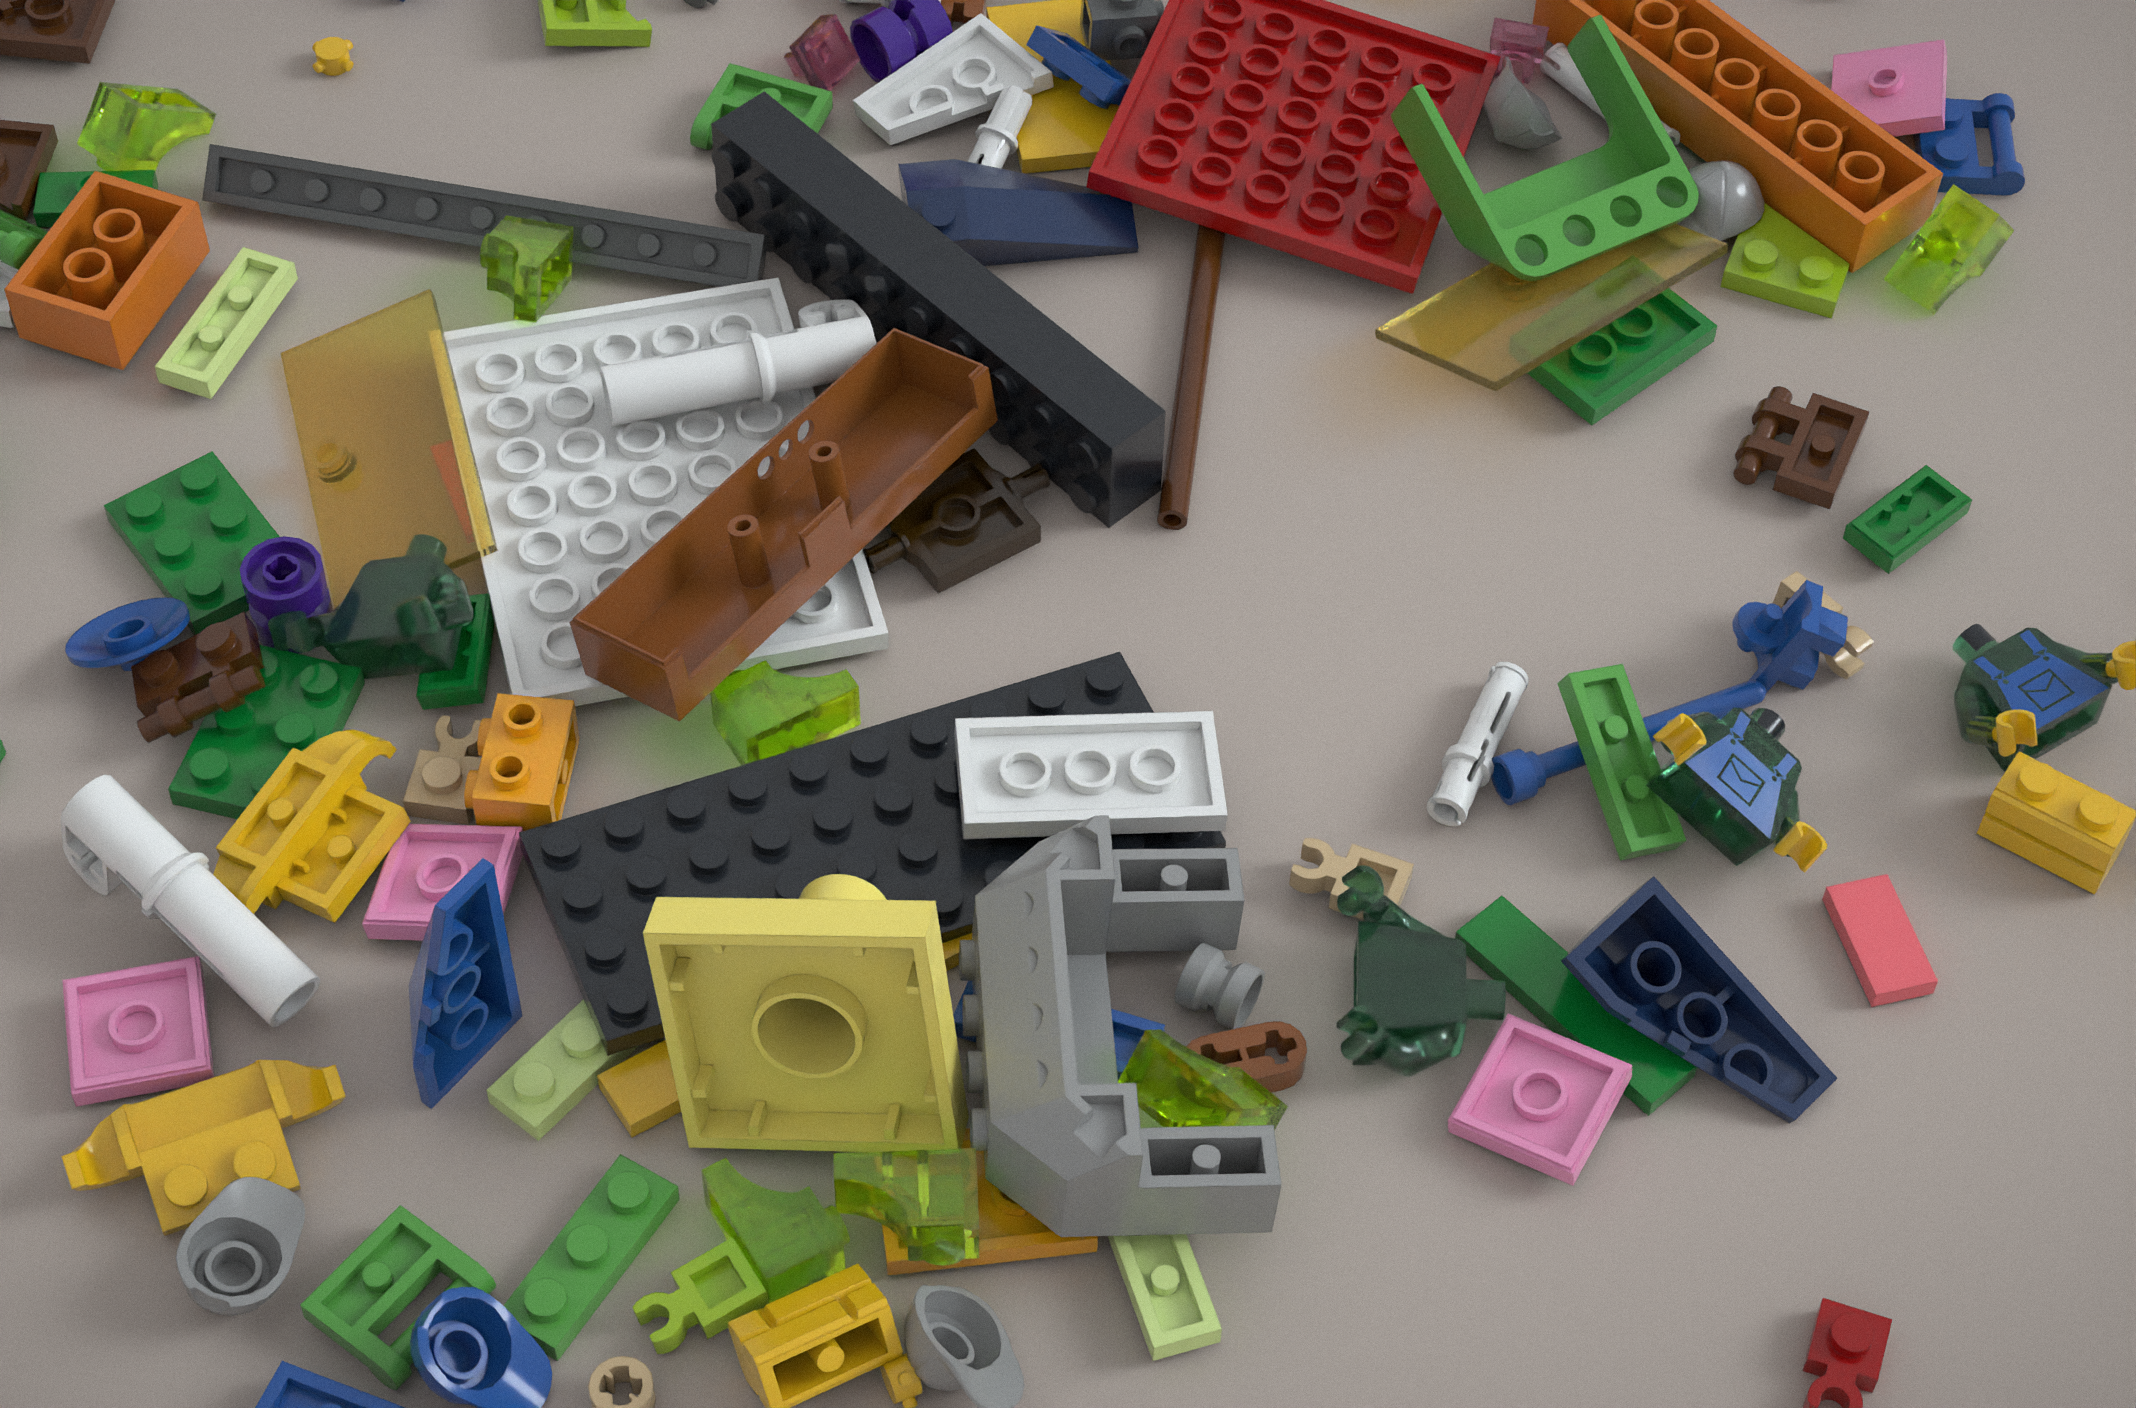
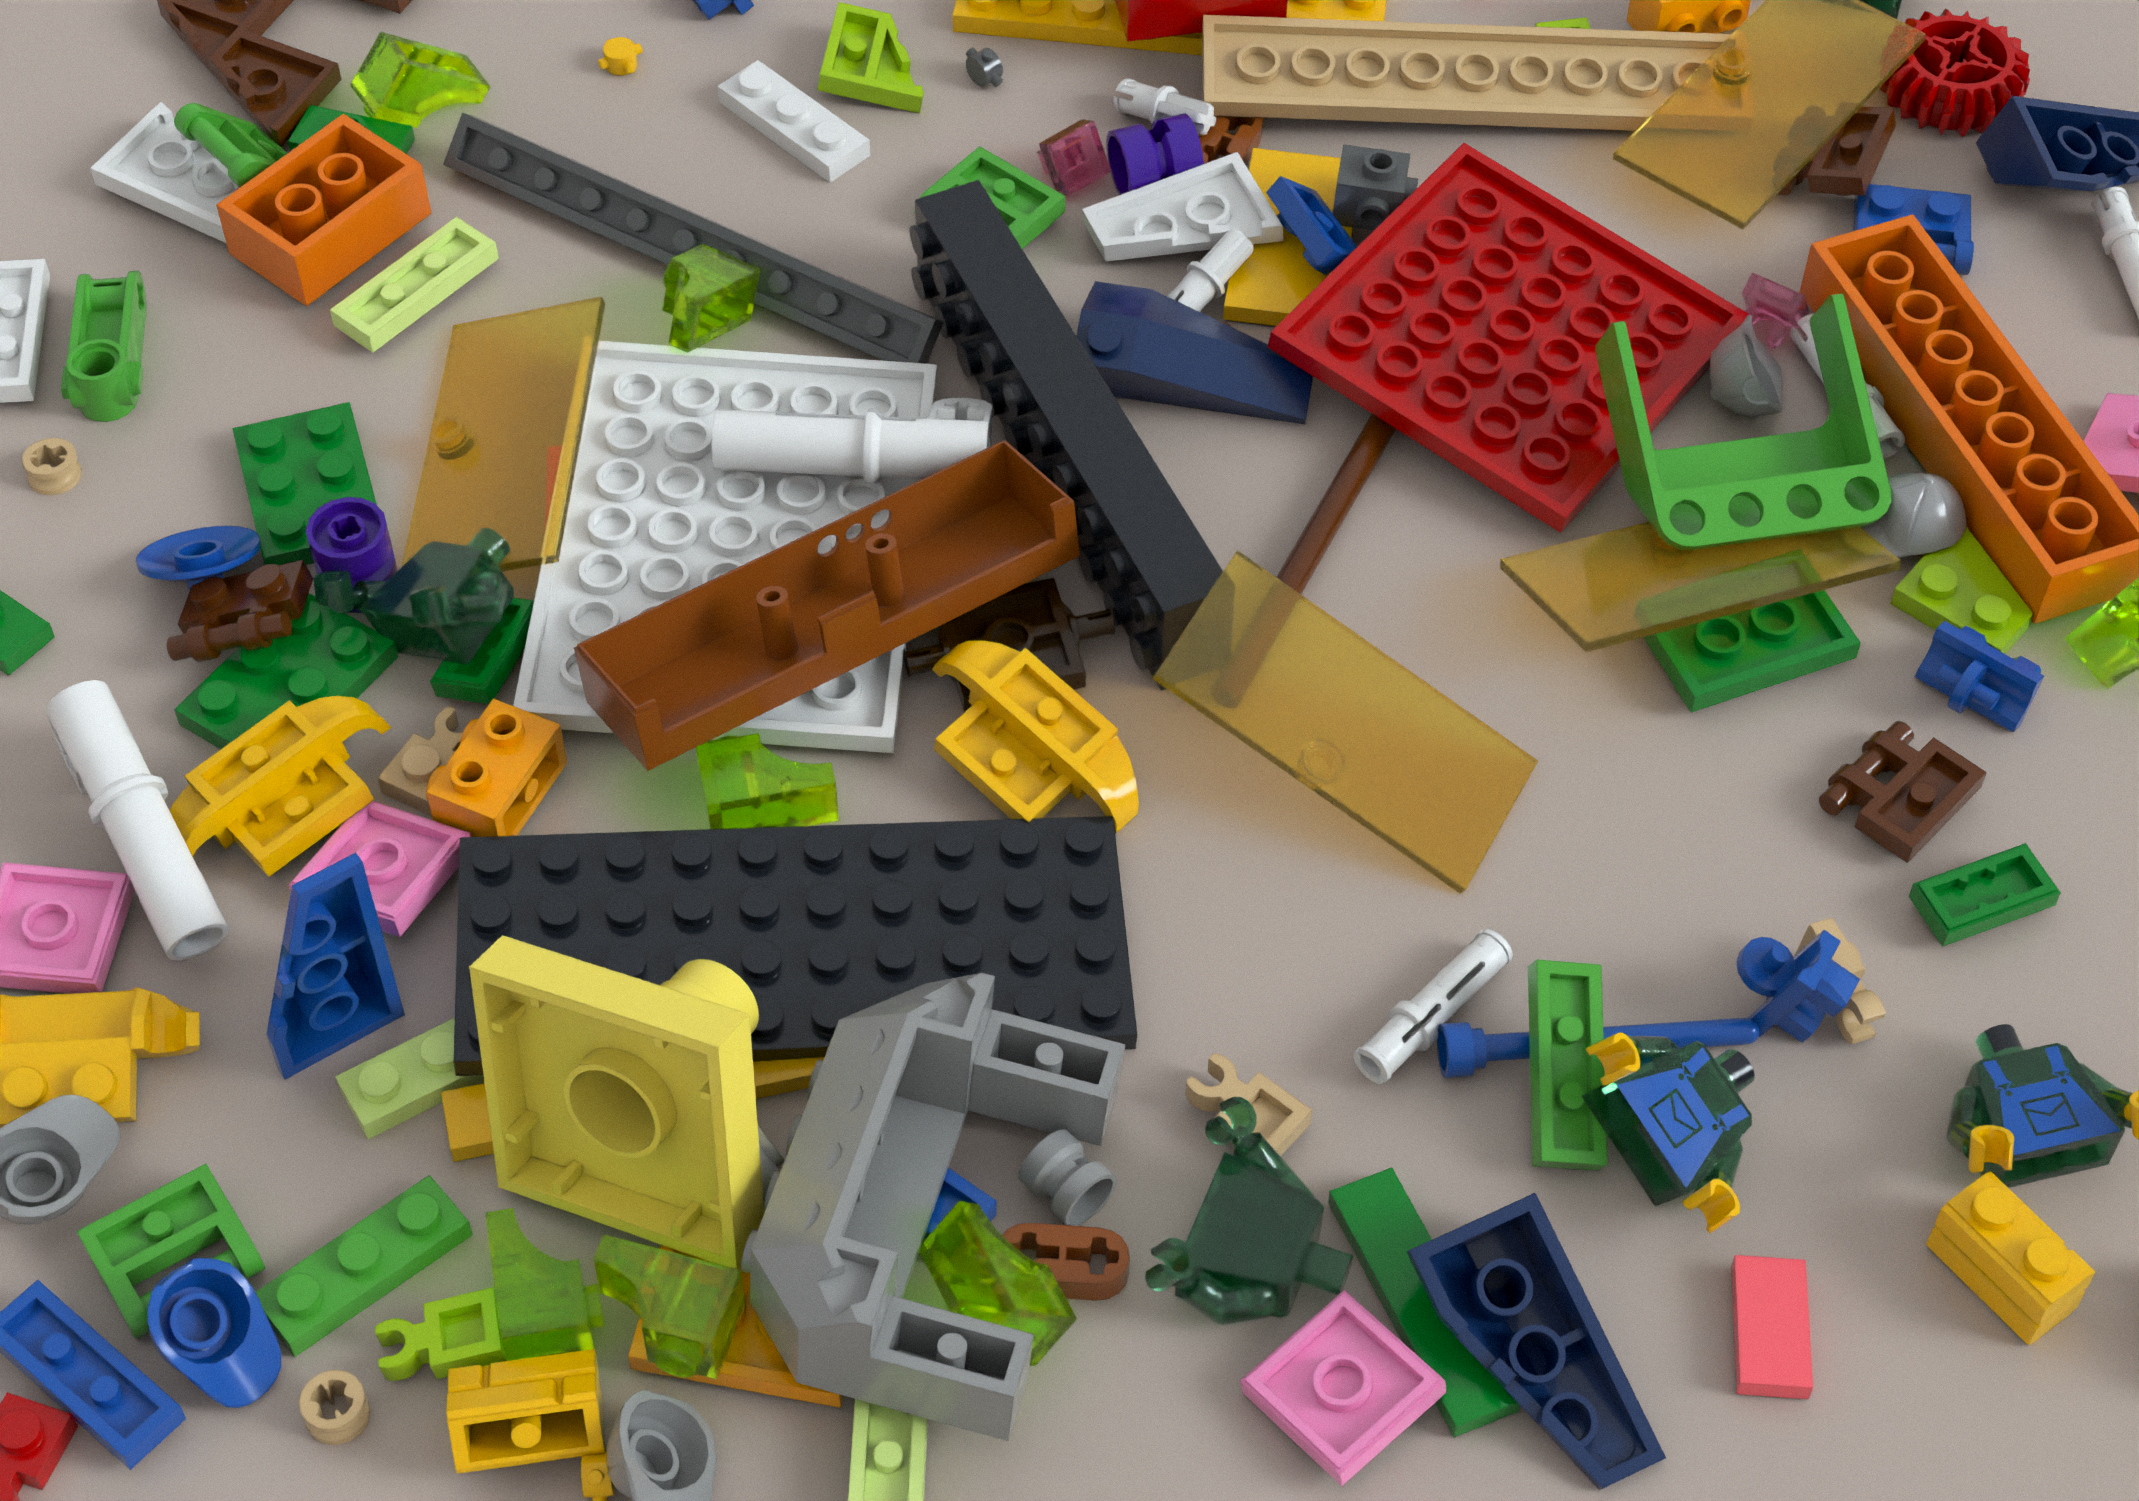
camera: 20 degrees right, 0 degrees up
(533, 80) = (794, 121): none -> white plate
(1018, 596) = (1032, 737): none -> yellow plate
(1062, 769) = (1023, 925): white plate -> none
(1304, 507) = (1347, 721): none -> clear yellow piece
(1828, 329) = (1979, 676): none -> blue hips

